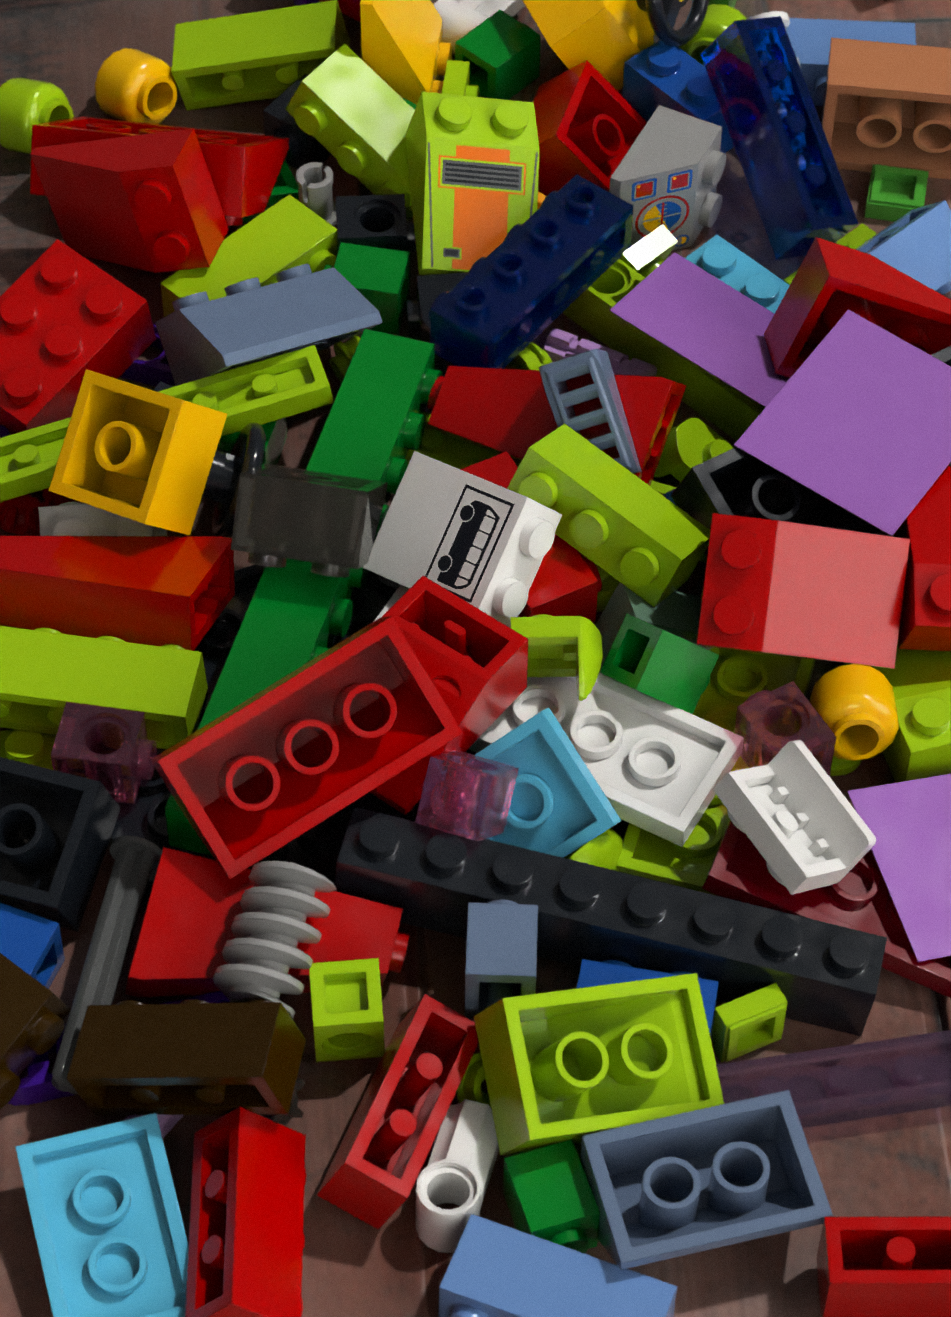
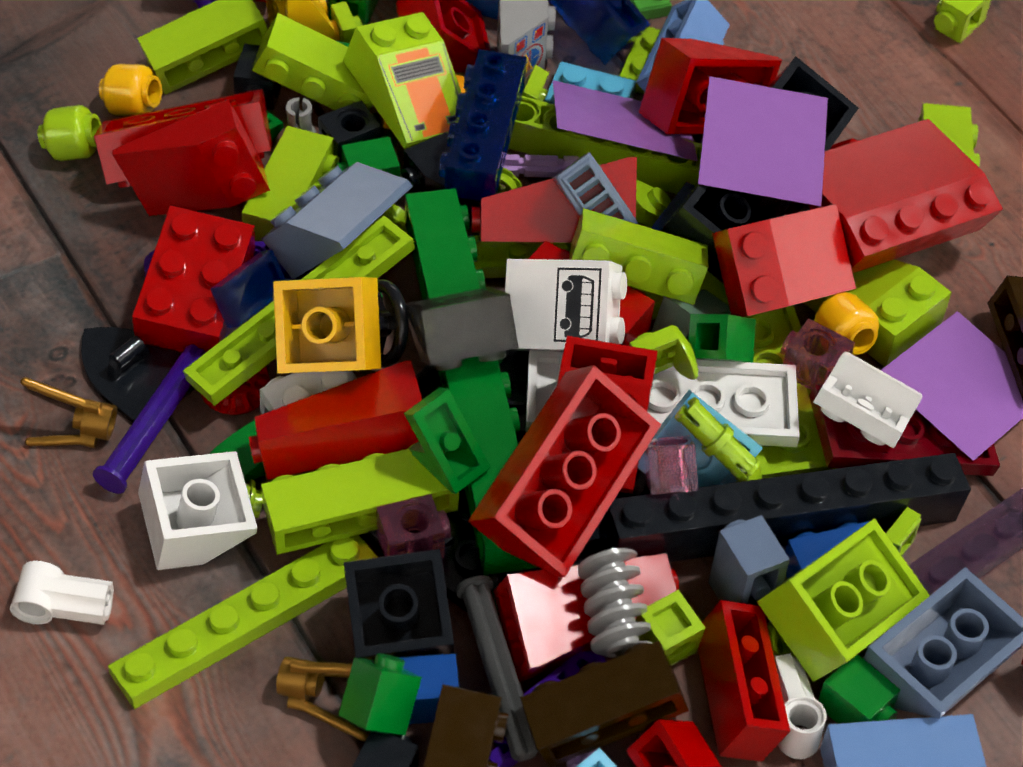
camera: 30 degrees left, 0 degrees up
(63, 372) = (247, 288): none -> clear blue tile
(187, 649) = (445, 441): none -> green slope
(548, 787) = (717, 439): none -> lime pin

